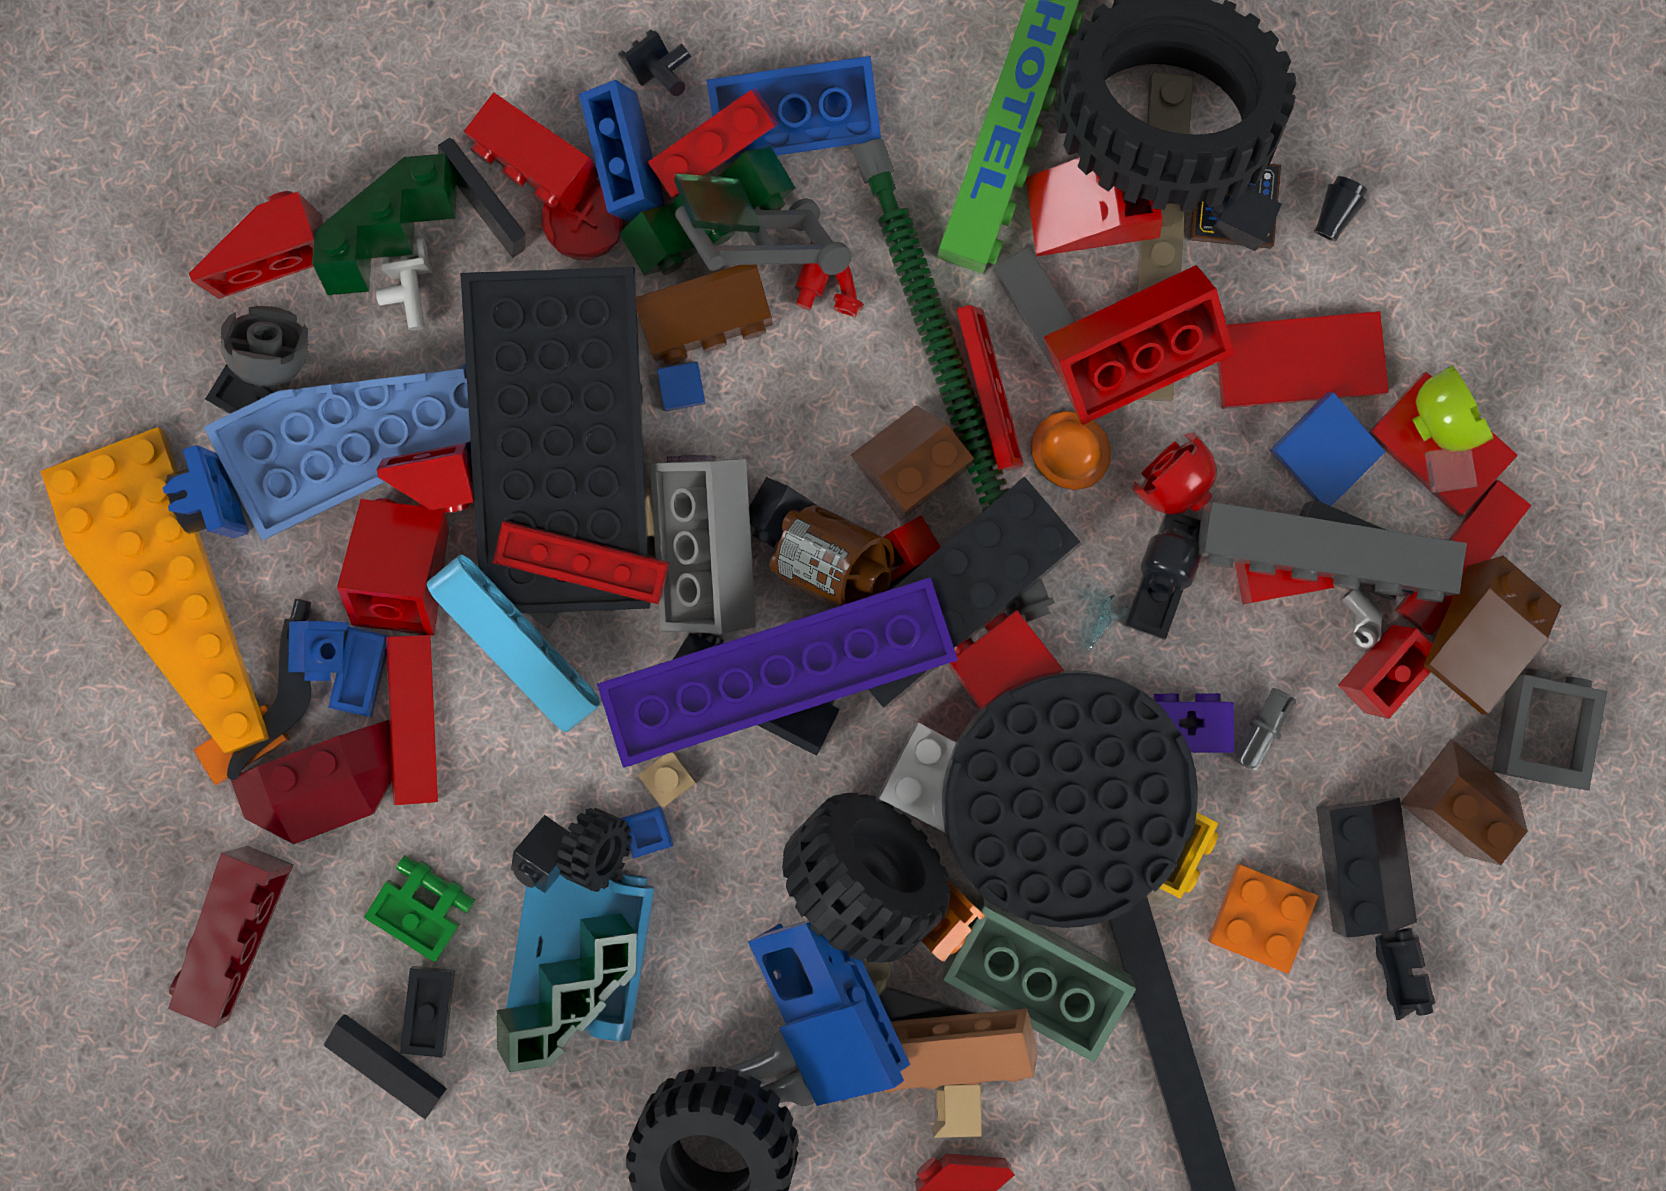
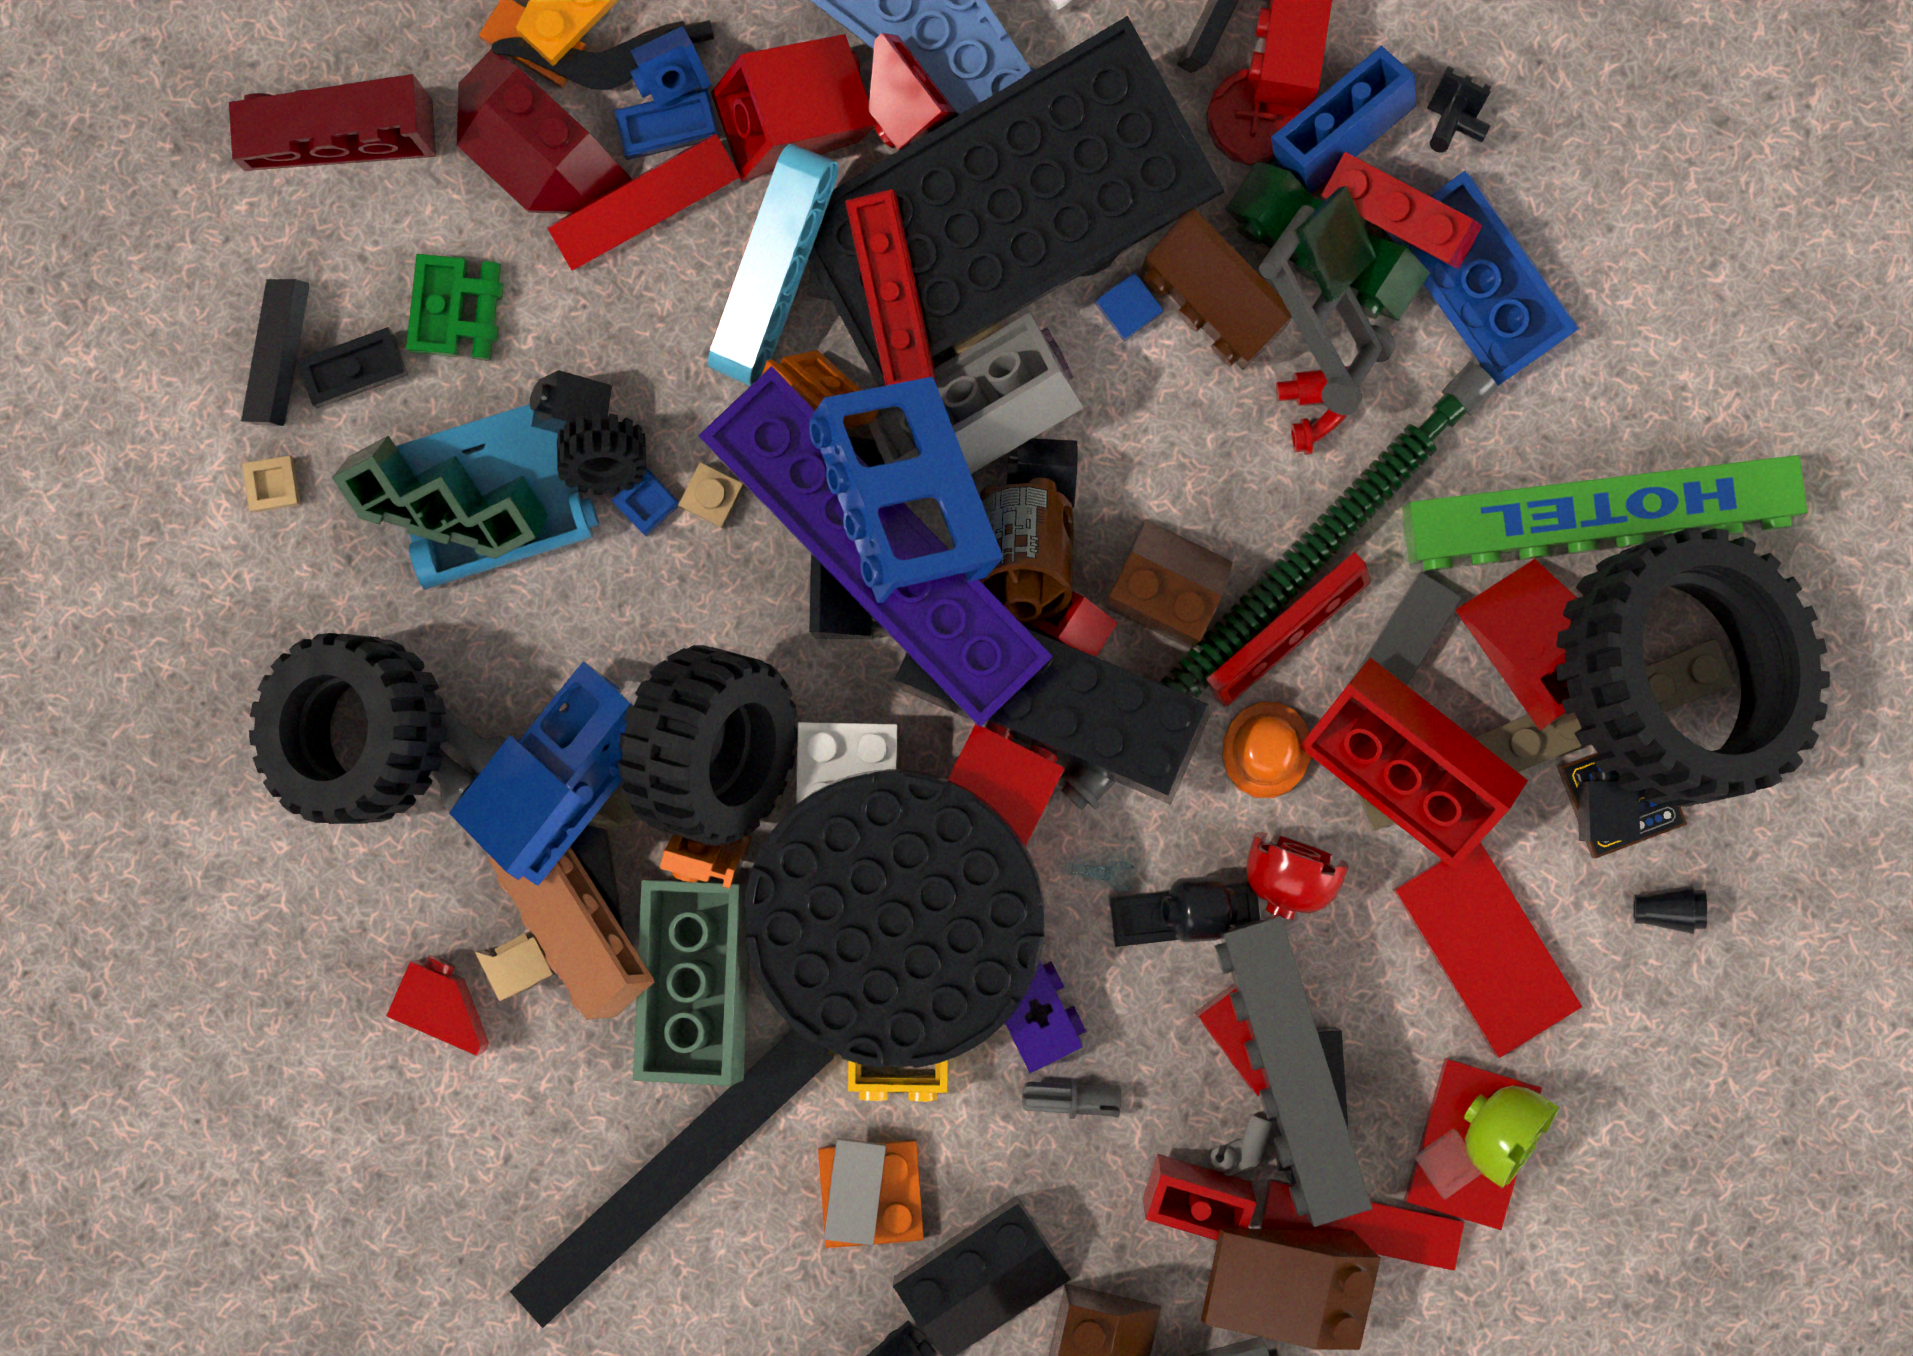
camera: 75 degrees right, 0 degrees up
(487, 1119) = (271, 484): none -> tan tile
(630, 651) = (818, 378): none -> orange plate
(746, 597) = (935, 473): none -> blue window
(1259, 930) = (855, 1191): none -> light grey tile
(1327, 450) = (1403, 1022): blue tile -> none

